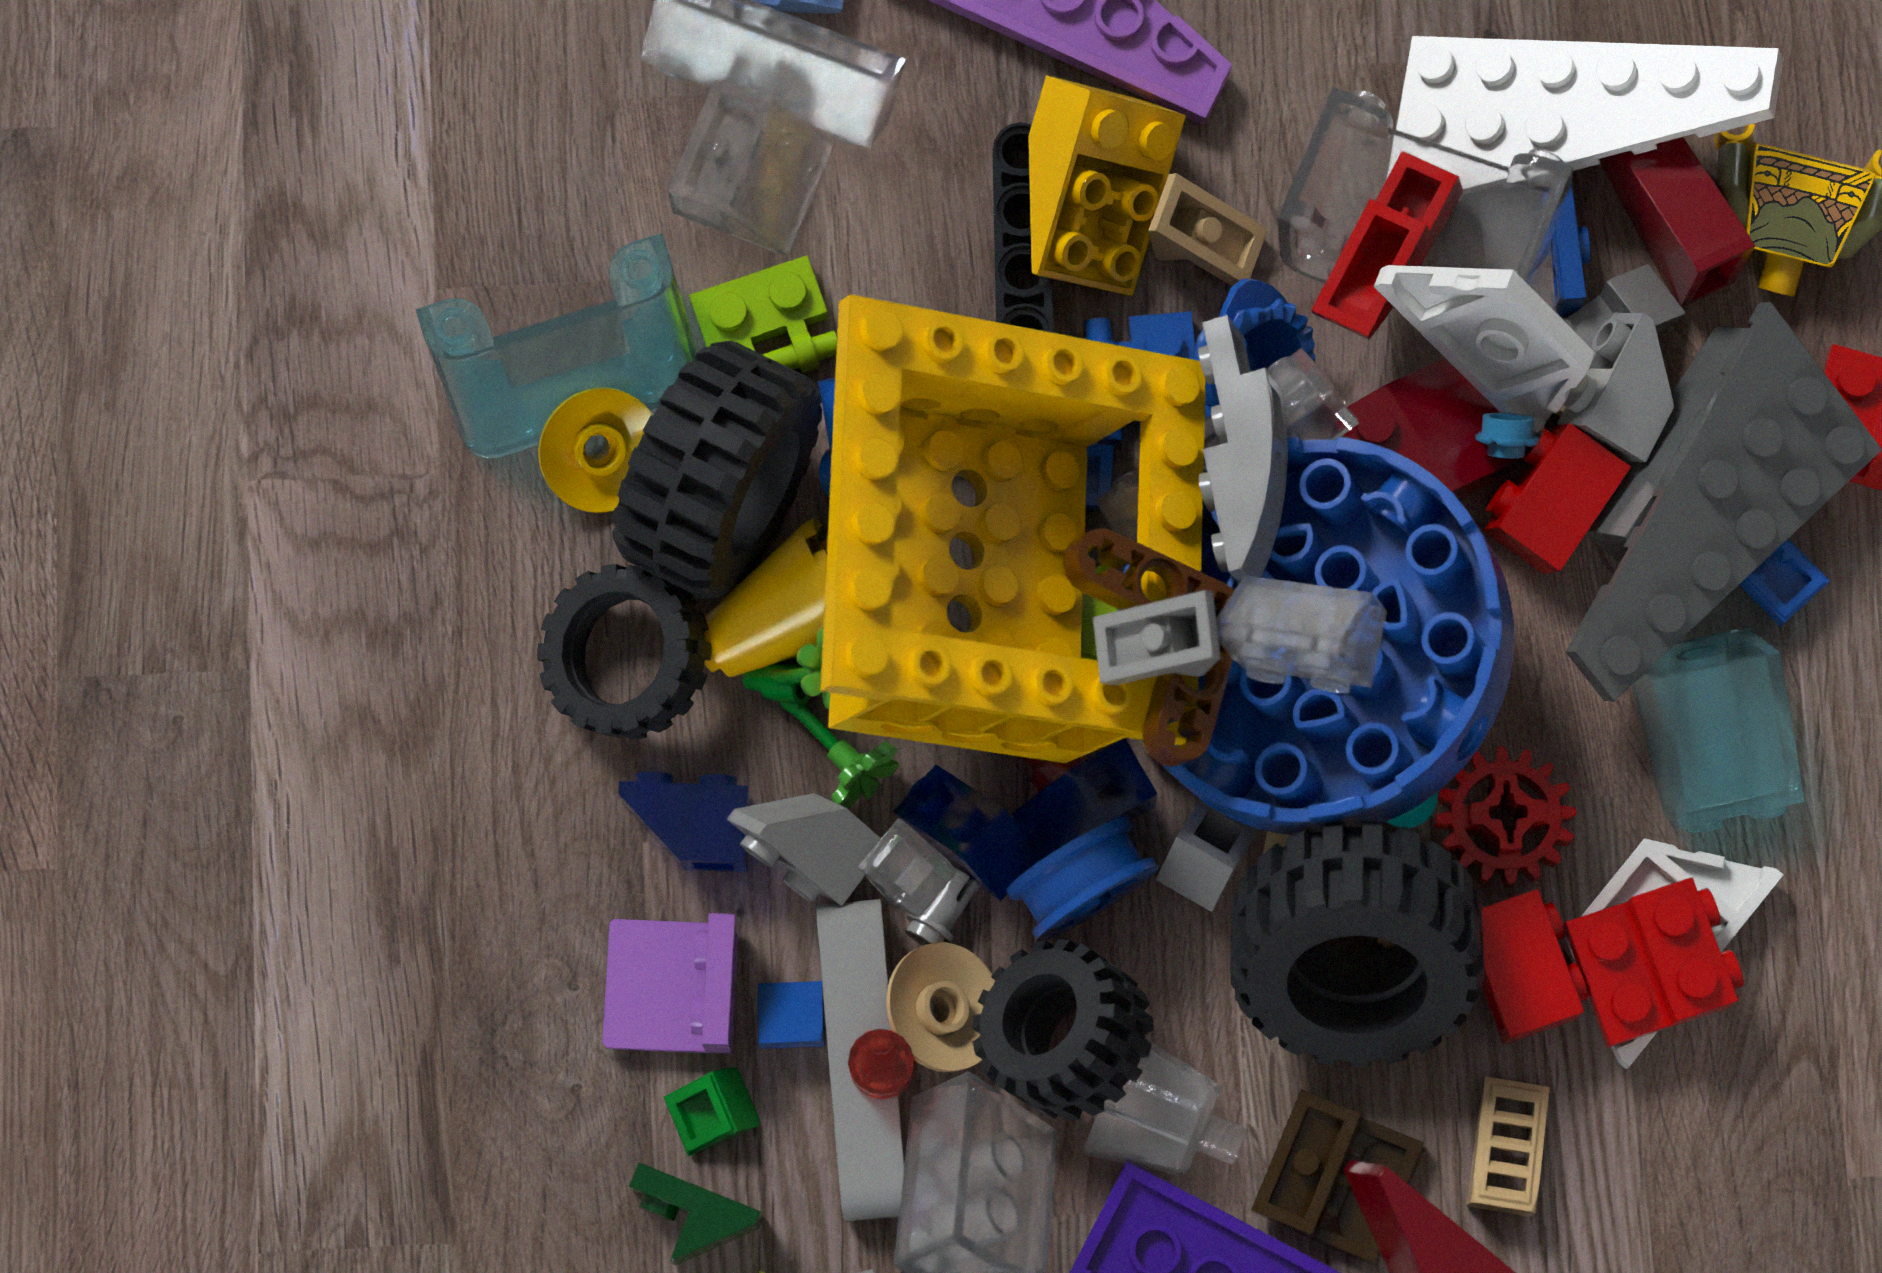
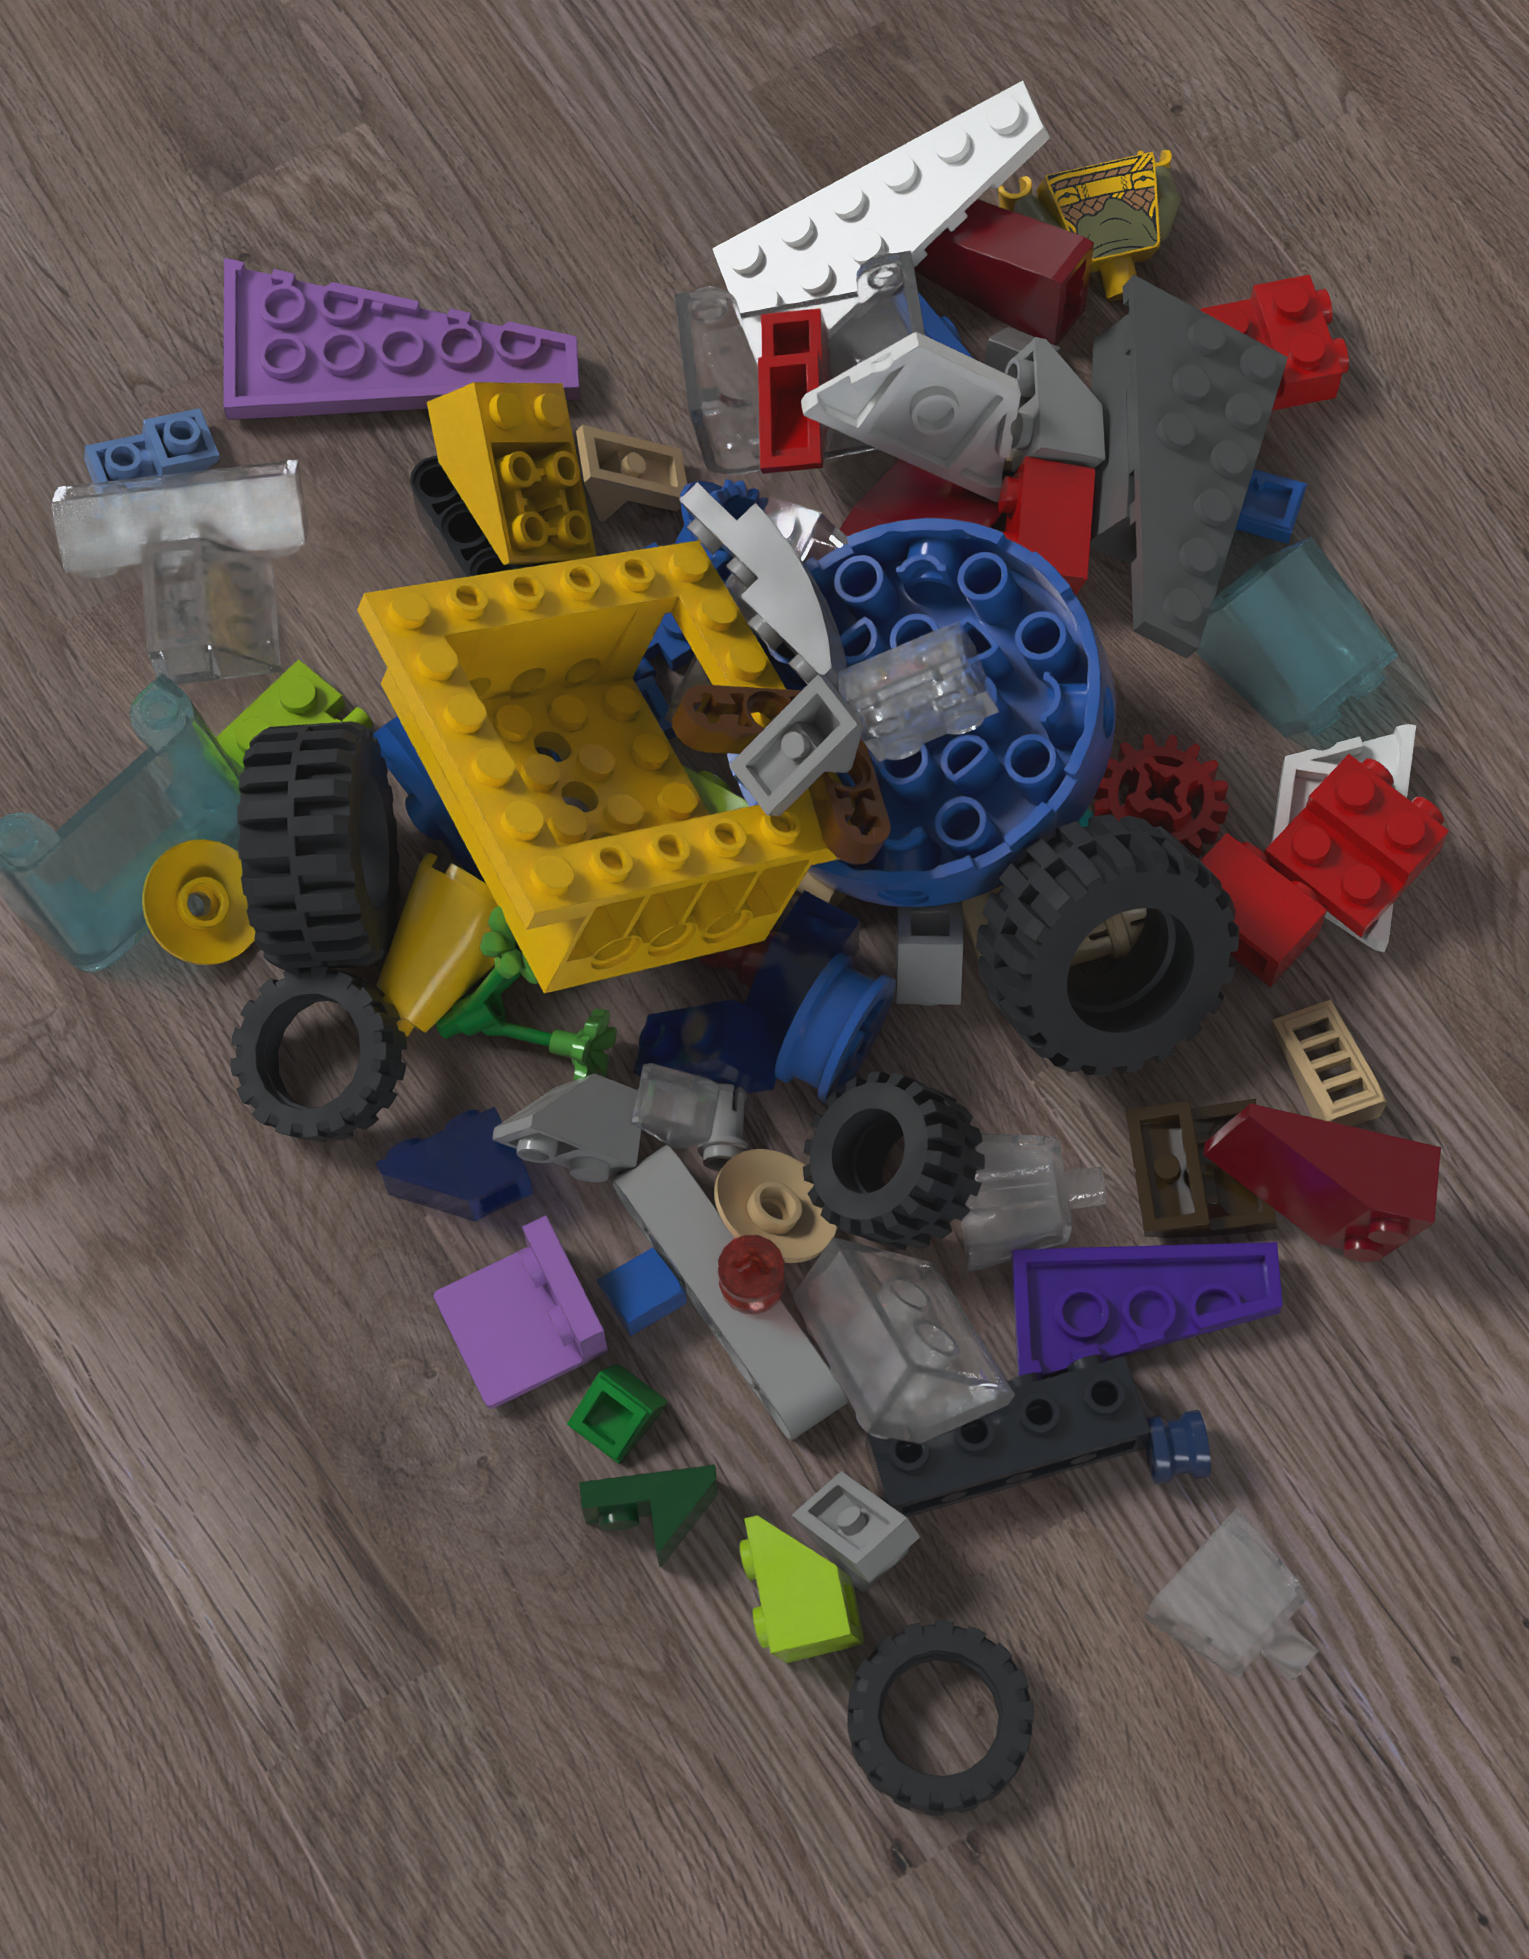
camera: 30 degrees left, 10 degrees down
(1507, 434) = (979, 495): dark azure plate -> none

